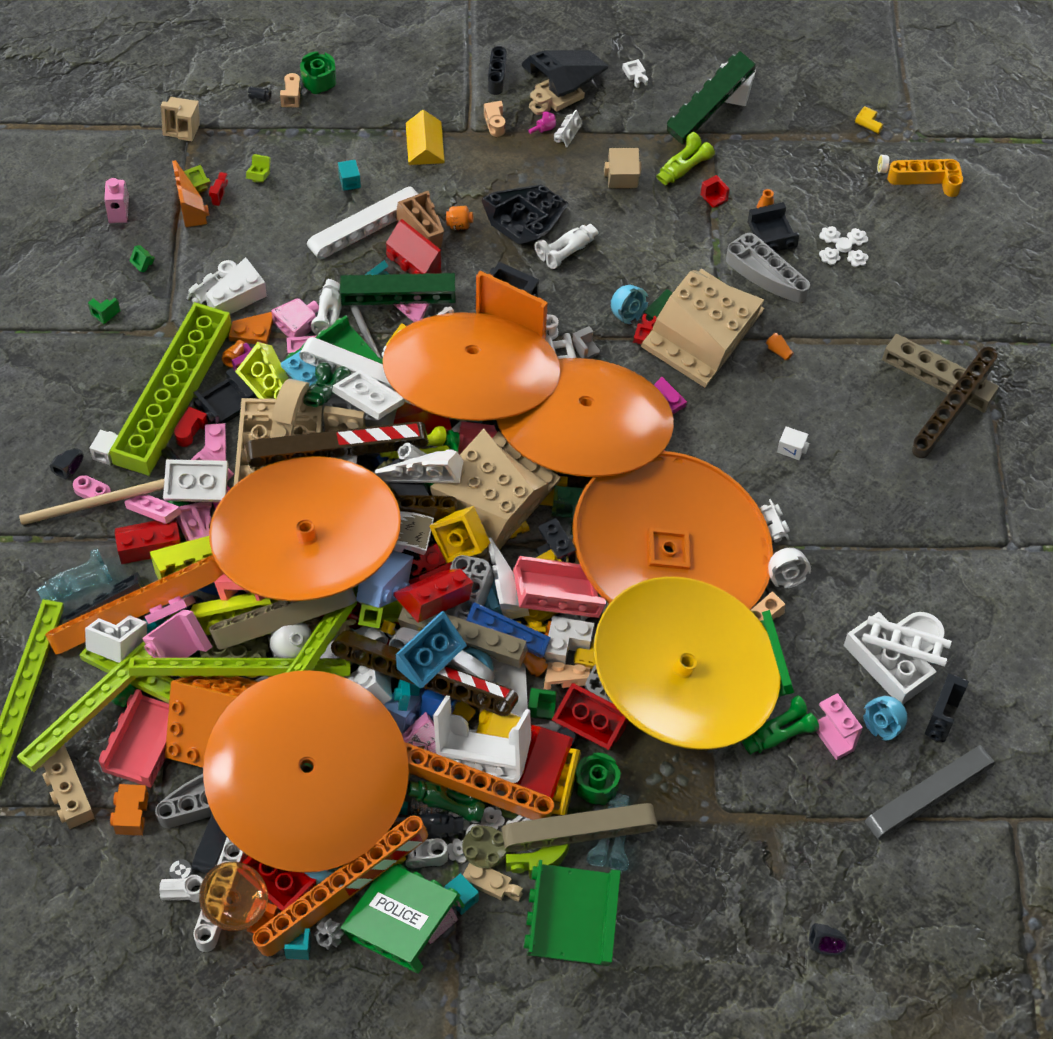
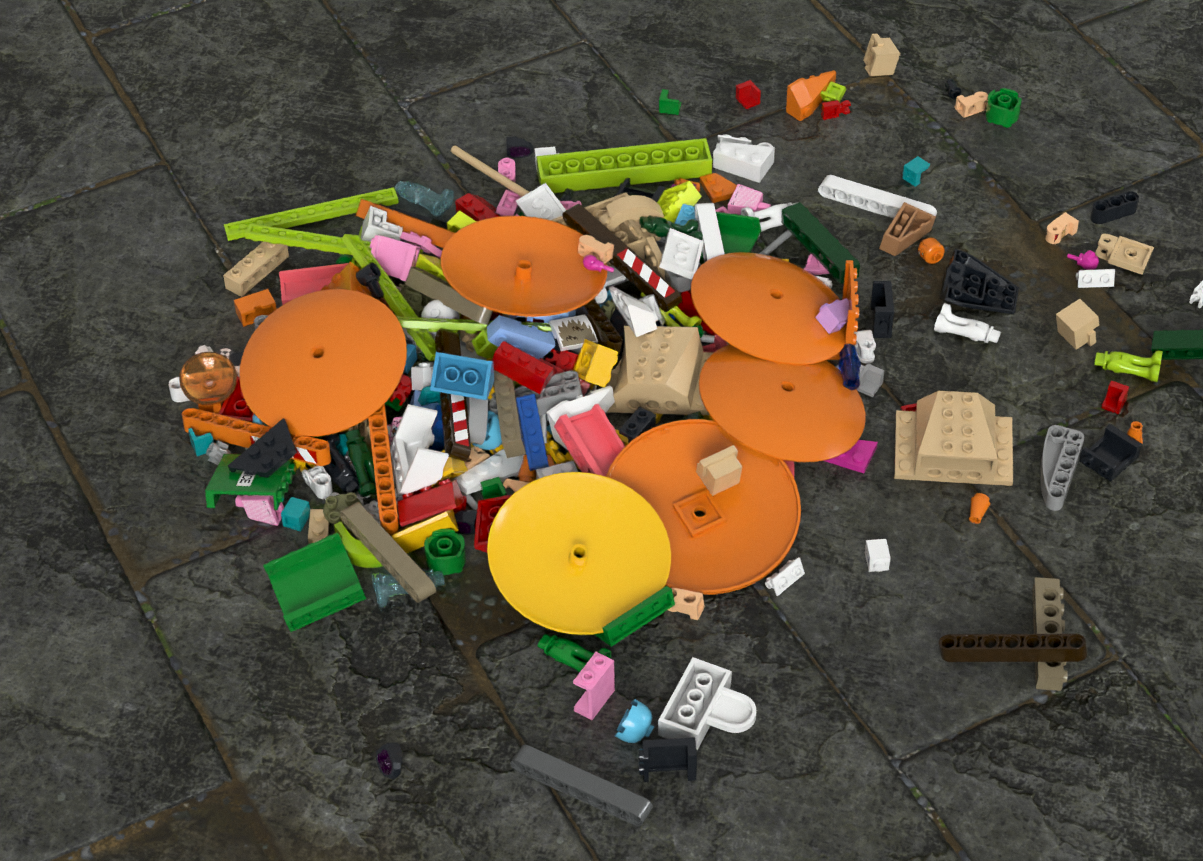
camera: 65 degrees right, 10 degrees down
(116, 193) = (771, 61): bright pink torso -> none
(141, 258) = (732, 101): green tile -> none
(146, 238) = (748, 94): none -> red panel
(189, 425) = (597, 192): red leg -> none
(211, 672) = (369, 278): none -> black axle
(259, 169) = (872, 122): lime bracket -> none
(324, 459) = (589, 245): none -> light nougat leg
(345, 468) = (592, 263): none -> dark pink piece
(379, 269) = (834, 227): teal tile -> none
(390, 879) = (266, 453): none -> black wing
(413, 250) = (866, 237): slope -> none
(424, 139) = (998, 200): yellow slope -> none
(519, 322) = (833, 315): none -> lavender slope
(565, 68) = (1155, 244): black wedge -> none
(572, 348) = (850, 366): none -> clear blue piece
(629, 303) = (930, 382): medium azure cylinder -> none
(659, 501) = (720, 470): none -> tan plate
(788, 567) = (737, 597): white cylinder -> none
(843, 245) = (1141, 512): white plant -> none
(913, 651) = (705, 709): white bar -> none

